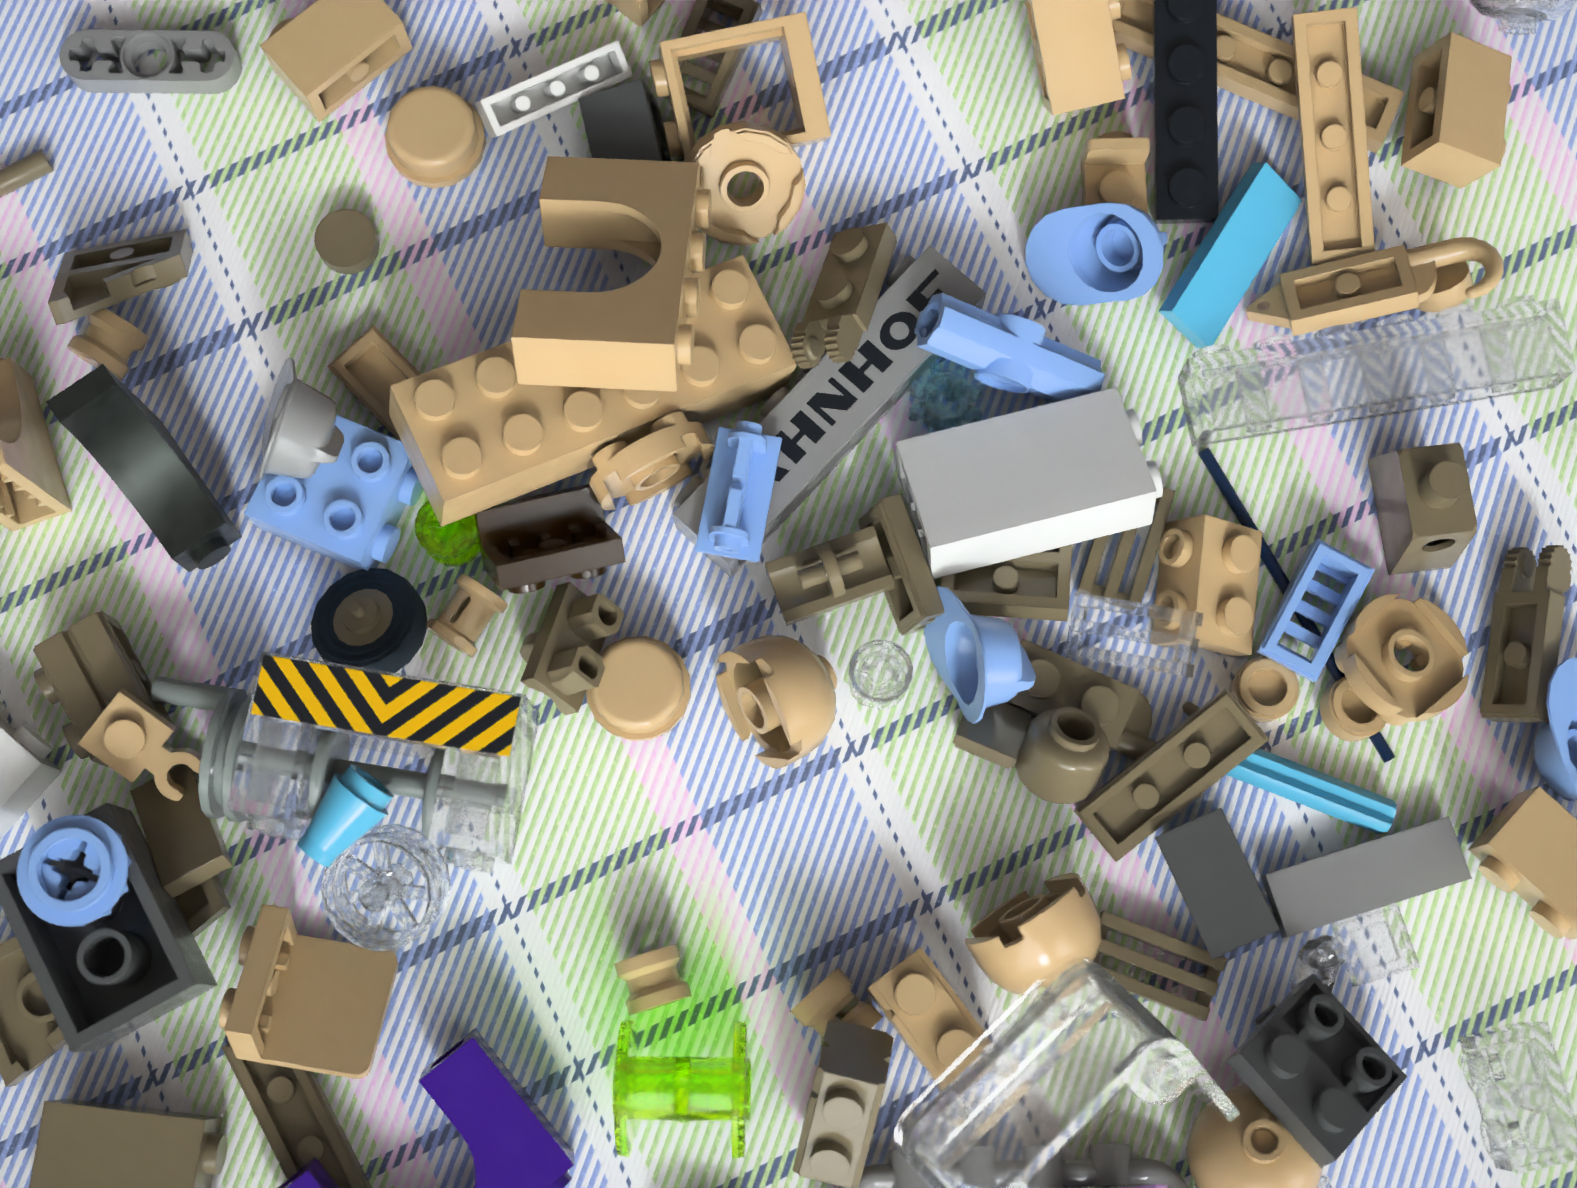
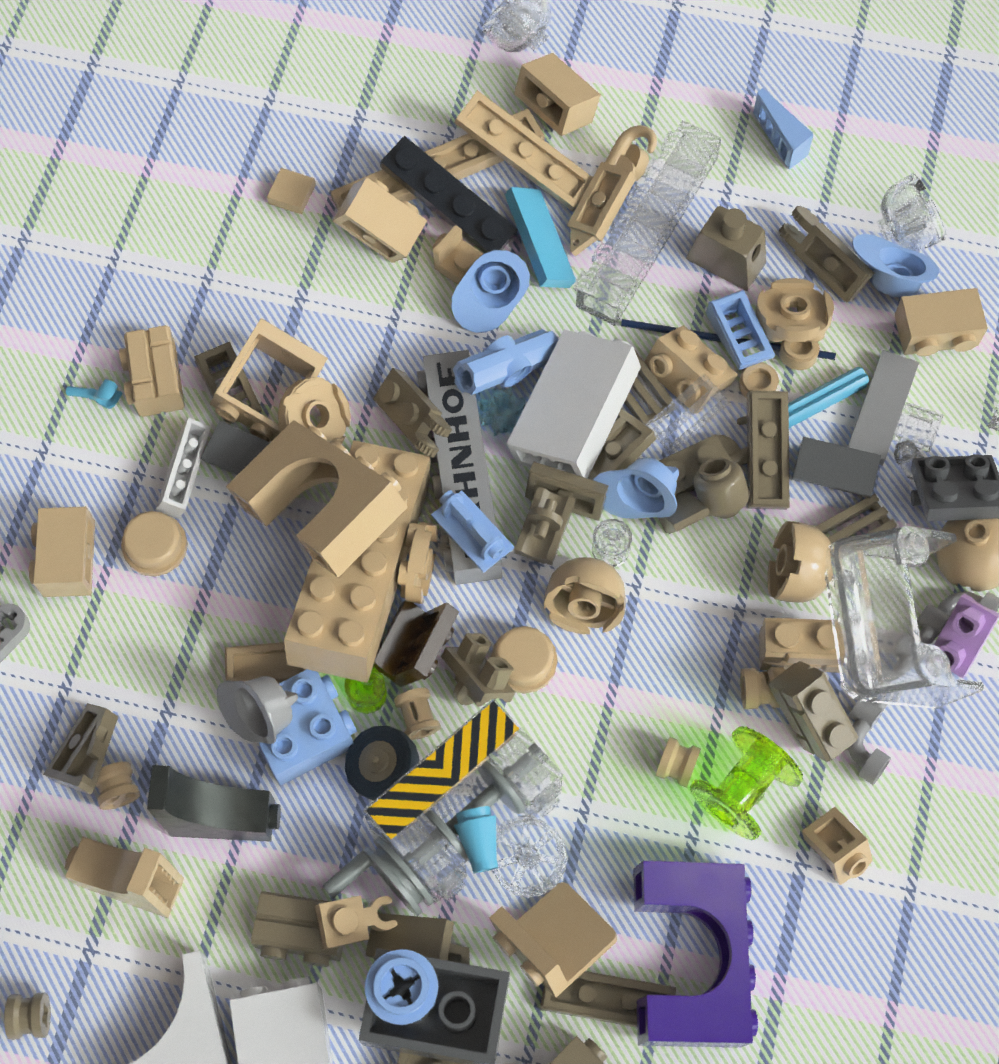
camera: 50 degrees left, 10 degrees down
(347, 241) = (167, 628): dark tan tile -> none

